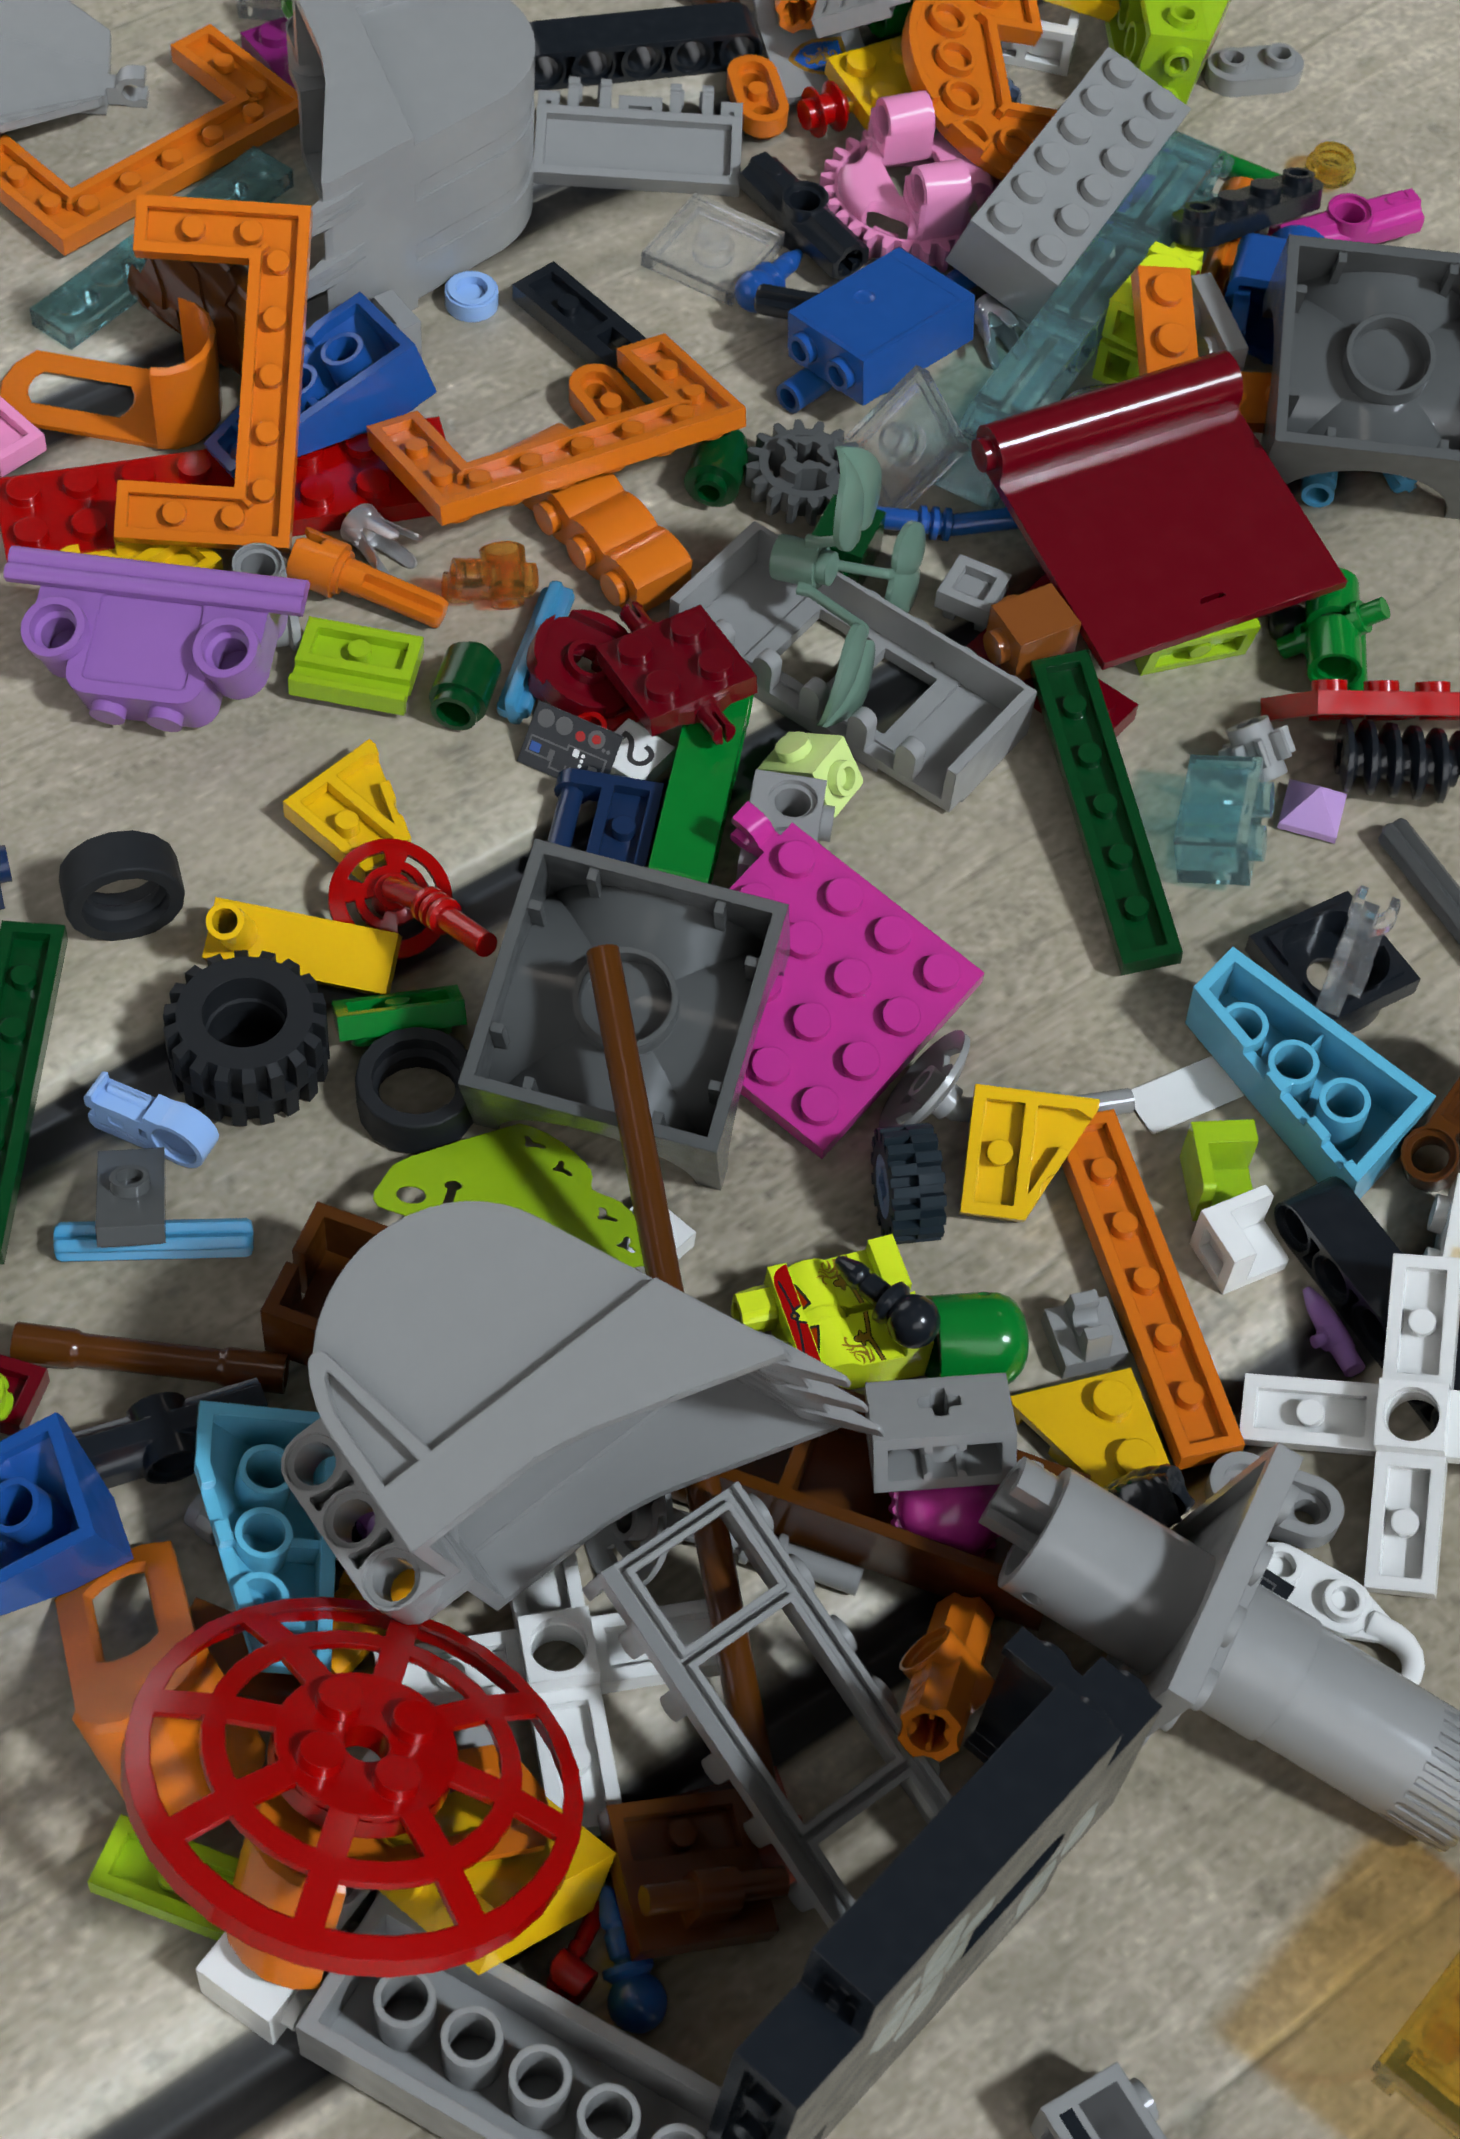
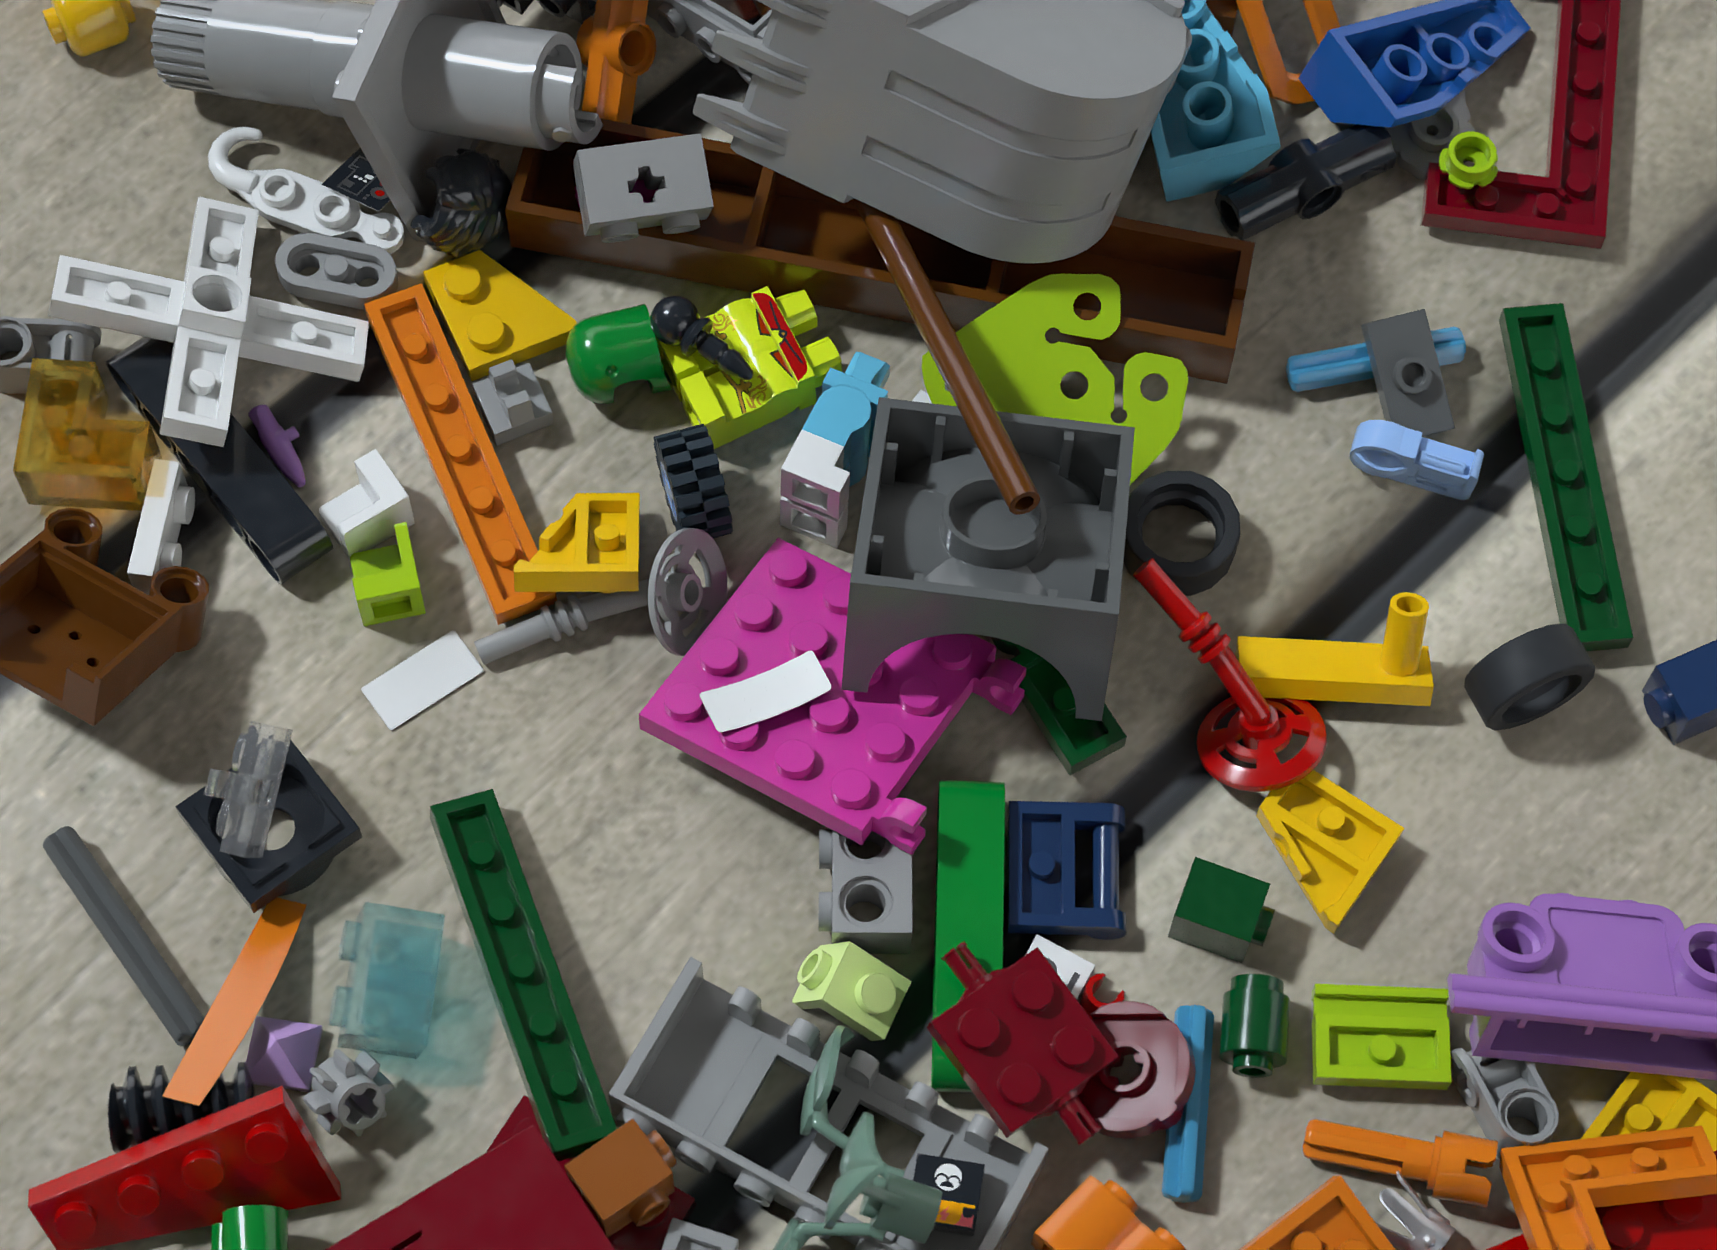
camera: 175 degrees right, 10 degrees up
(73, 1348) = (1411, 250): reddish brown piece -> none
(240, 996) = (1362, 500): black tyre -> none
(374, 1016) = (1237, 599): green plate -> none
(470, 770) = (1221, 911): none -> dark green brick
(495, 576) = (1253, 1189): clear orange plate -> none
(567, 741) = (1120, 964): black sticker -> none
(756, 1192) = (832, 451): none -> hips
(758, 608) = (960, 1190): none -> black tile
(864, 957) = (766, 693): none -> white sticker
(1306, 1074) = (297, 671): medium azure wedge -> none
(1358, 814) = (237, 1002): none -> orange sticker

